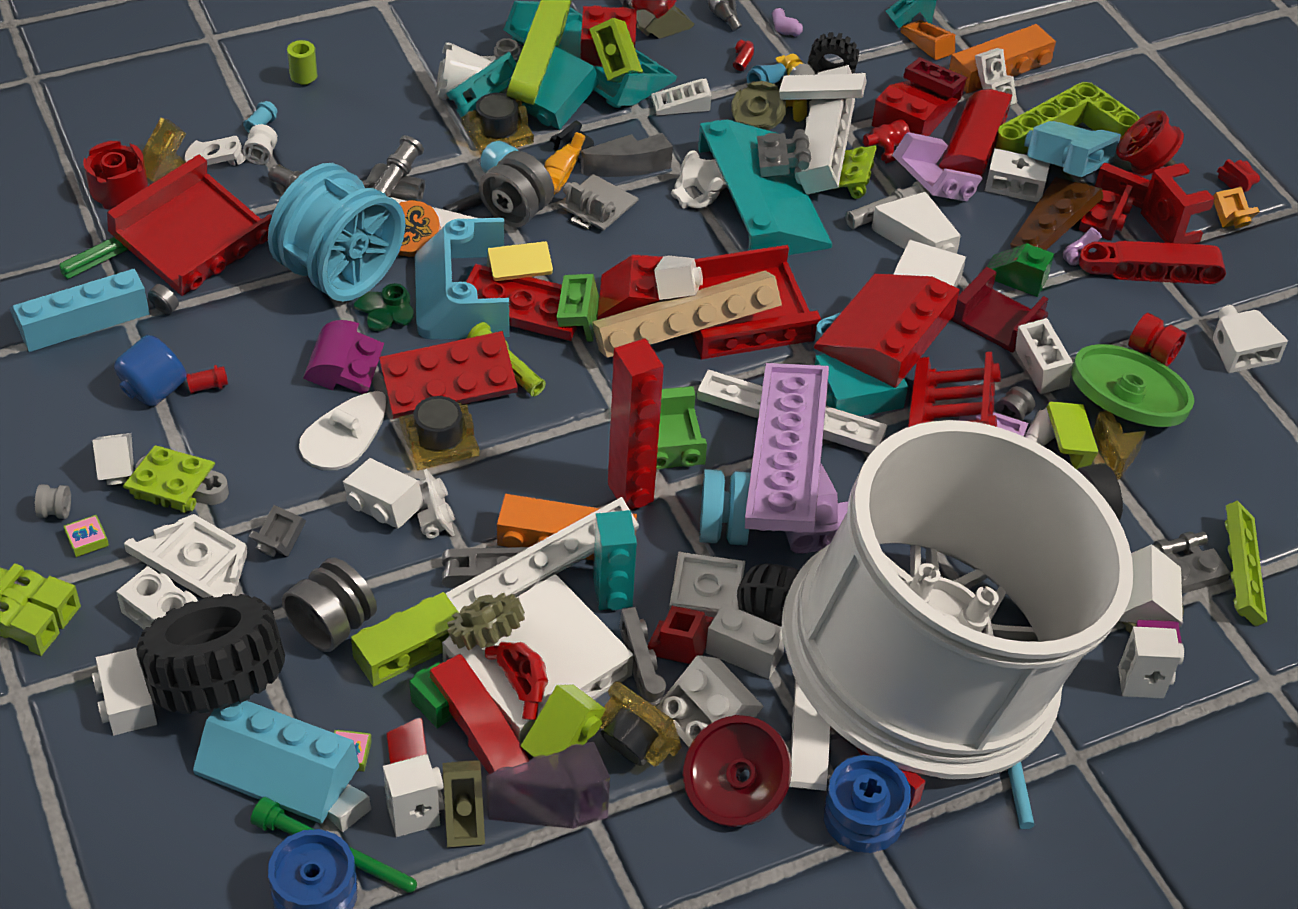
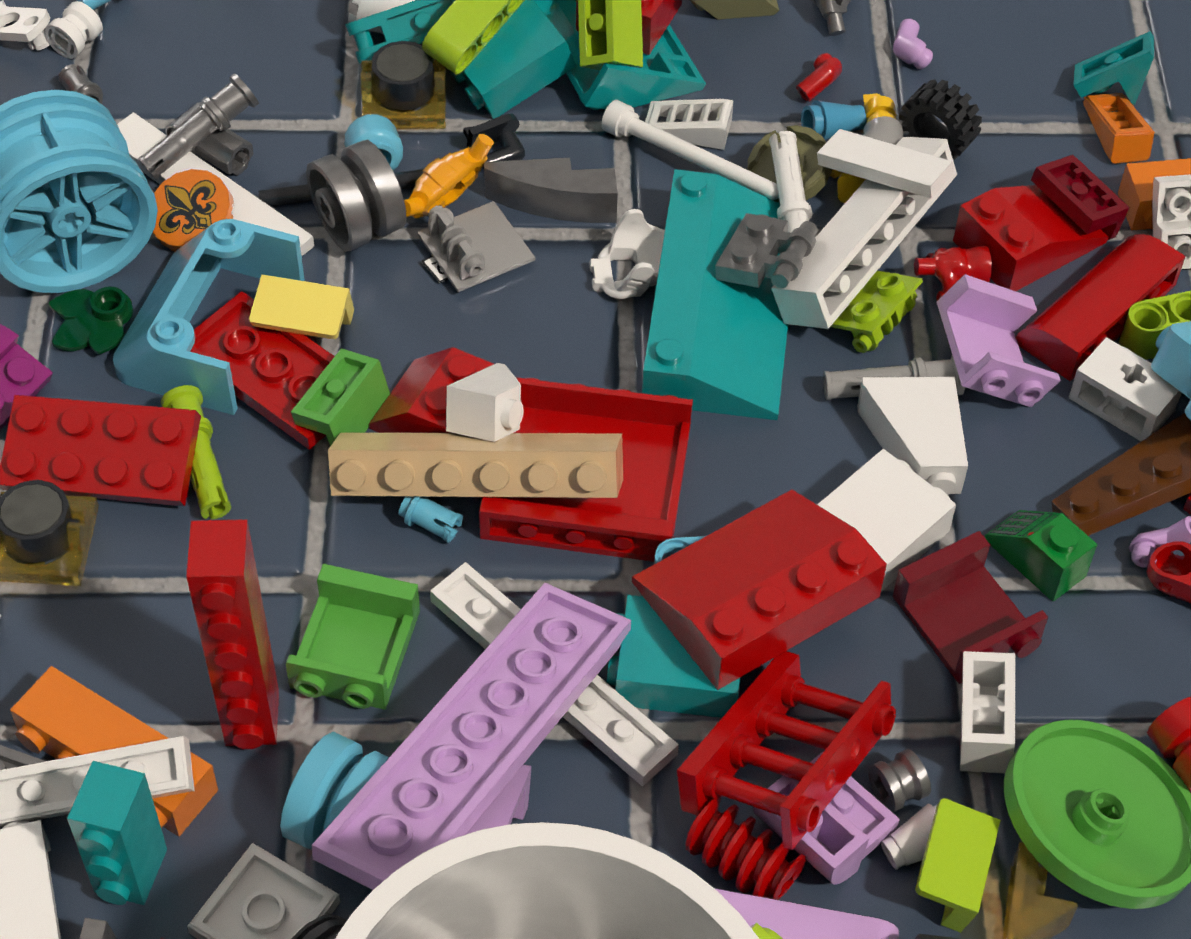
camera: 25 degrees right, 5 degrees up
(642, 108) = (621, 120): none -> white piece
(667, 353) = (430, 516): none -> medium azure pin
(767, 112) = (789, 180): none -> white pin

